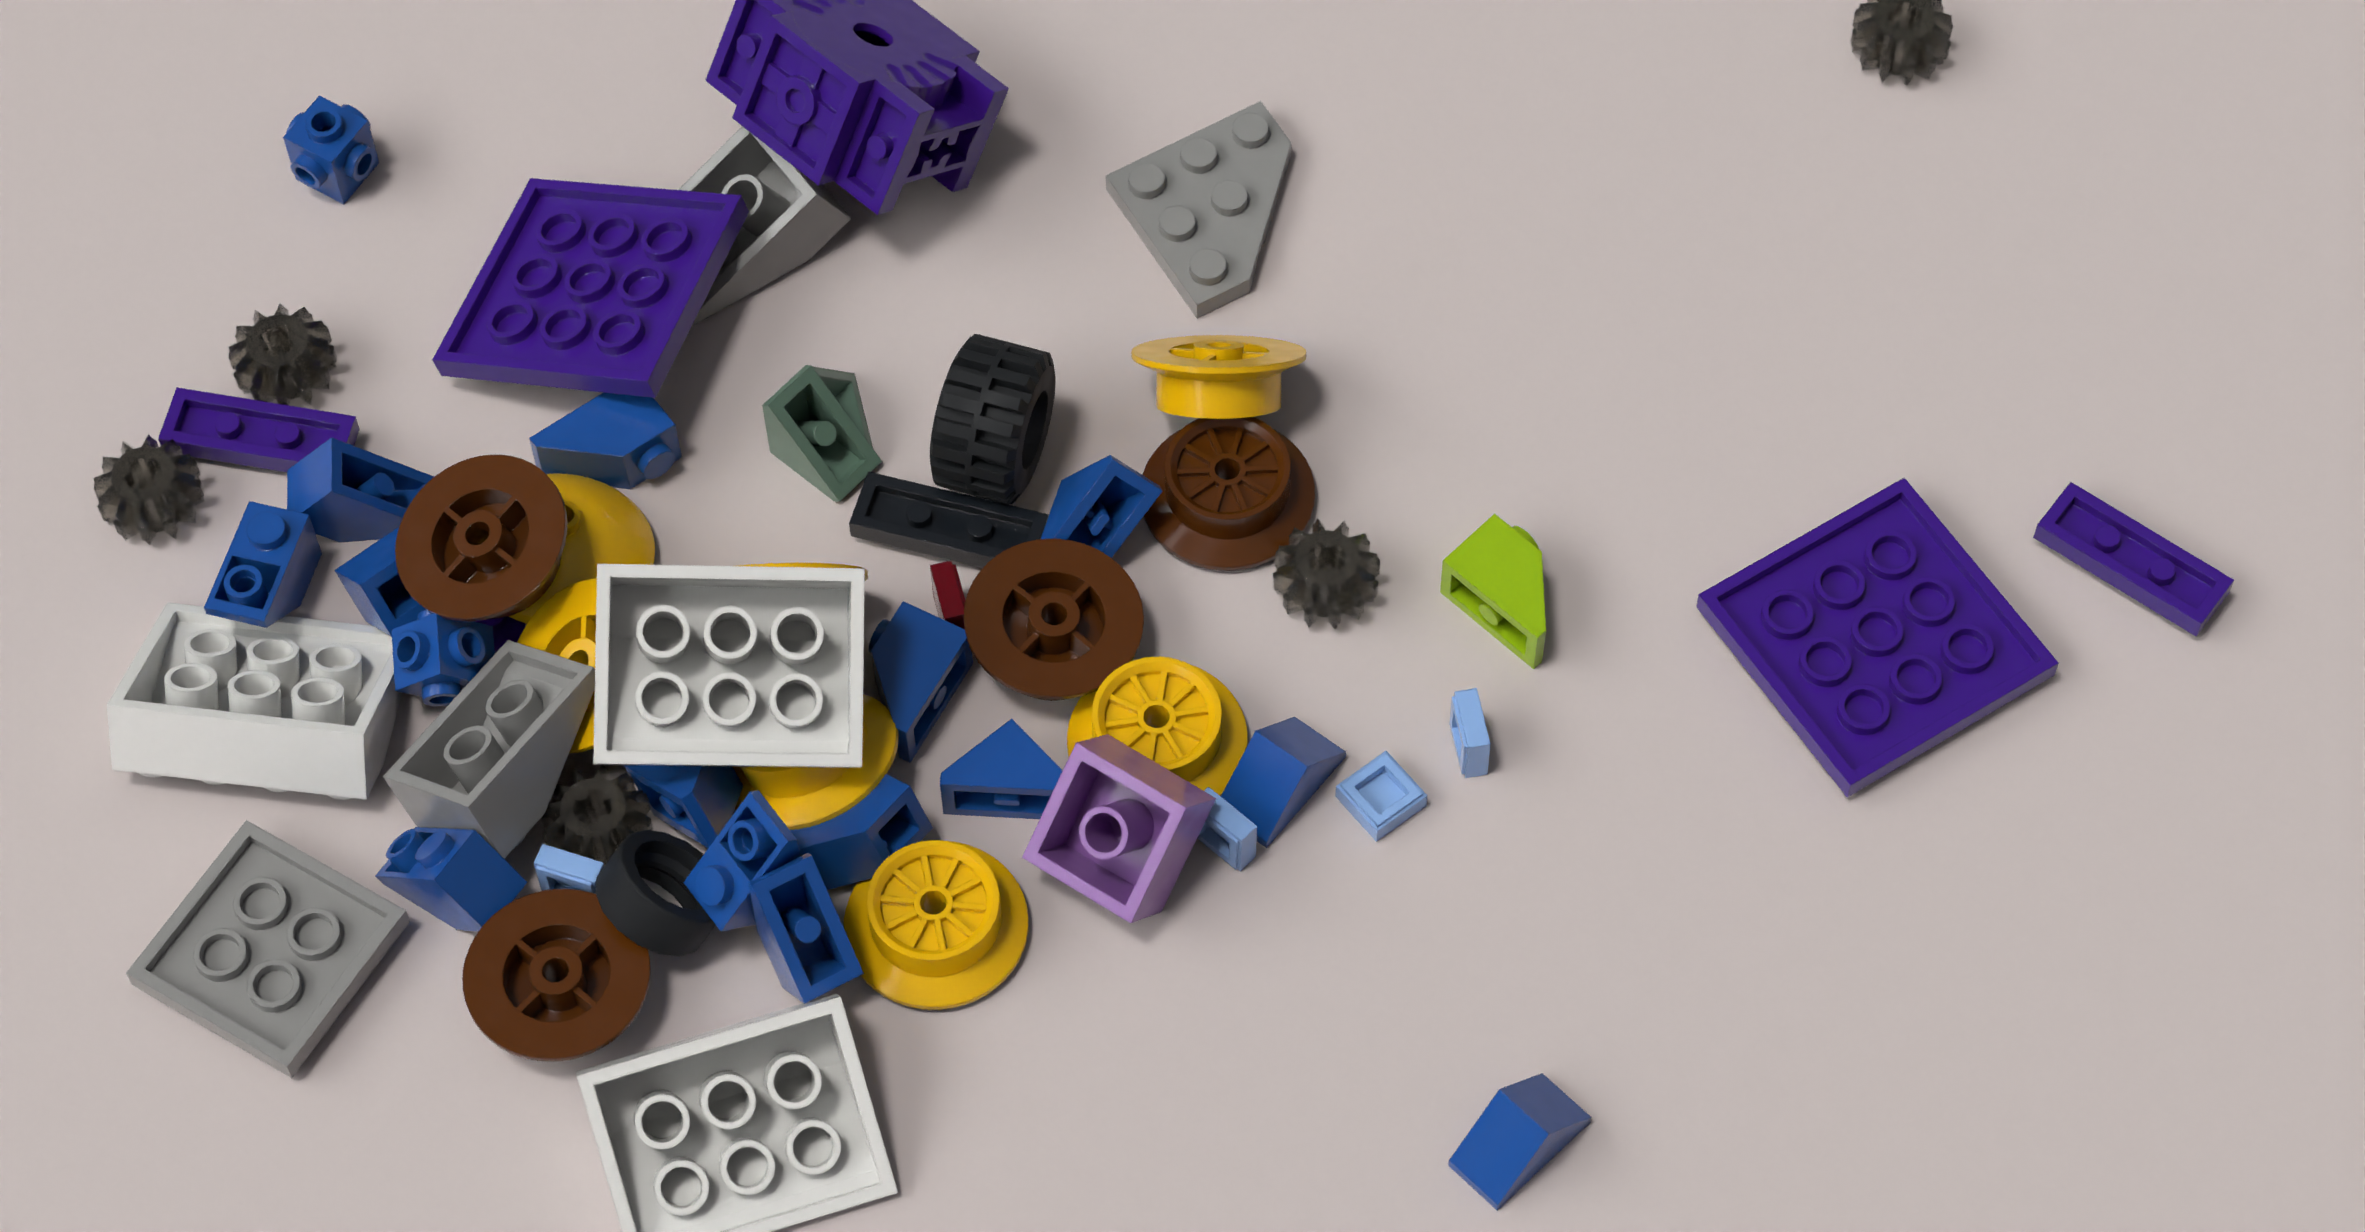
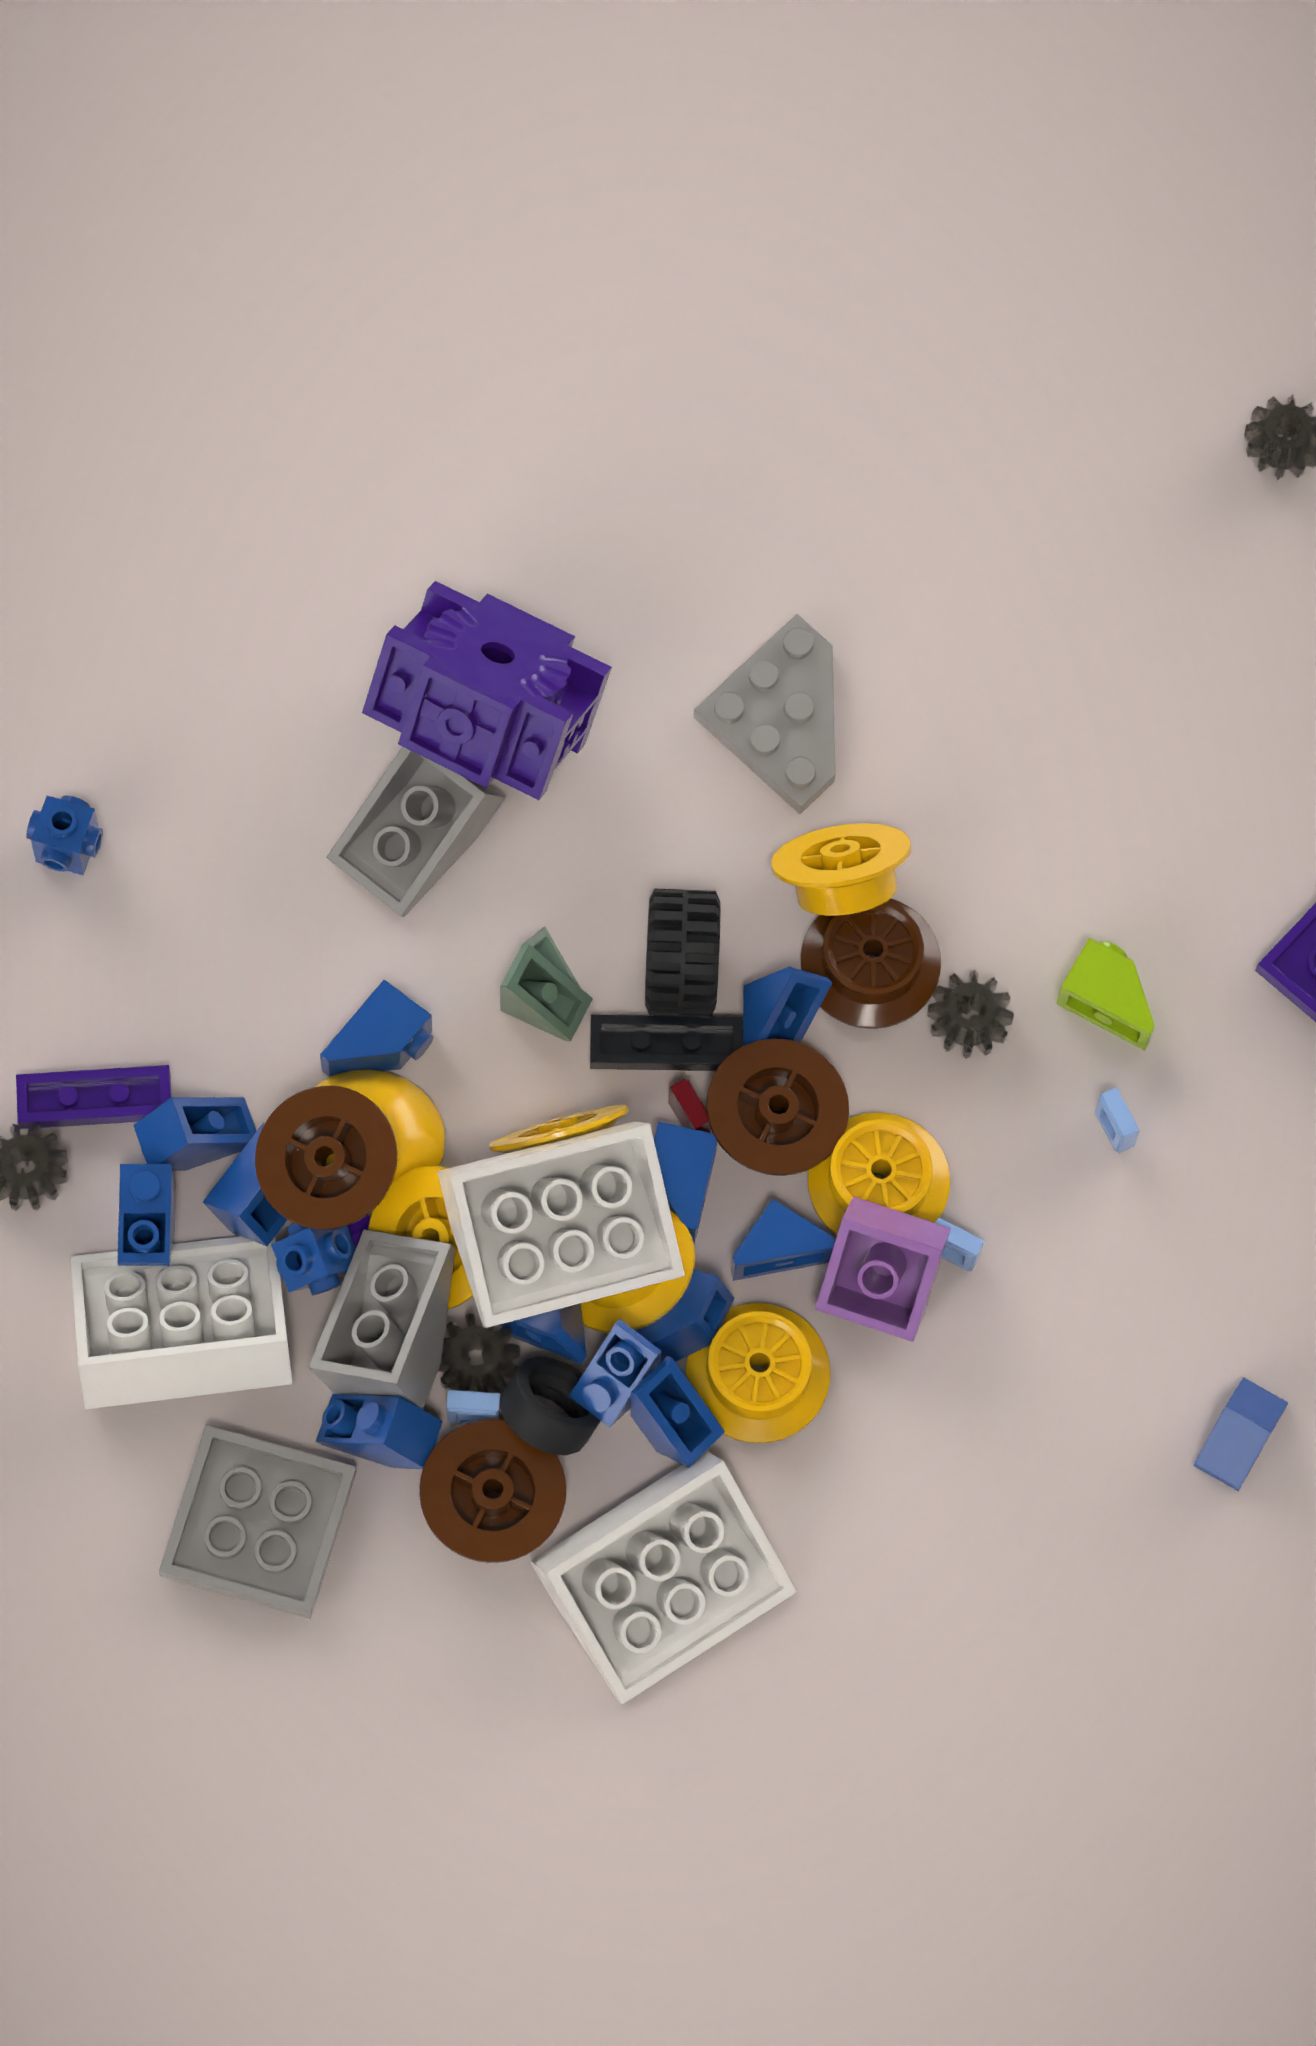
camera: 20 degrees left, 10 degrees up
(282, 356) = (83, 1009): clear smoke gear -> none
(591, 287) = (324, 910): dark purple plate -> none
(1280, 775) = (982, 1188): blue slope -> none
(1381, 796) = (1061, 1185): light blue tile -> none

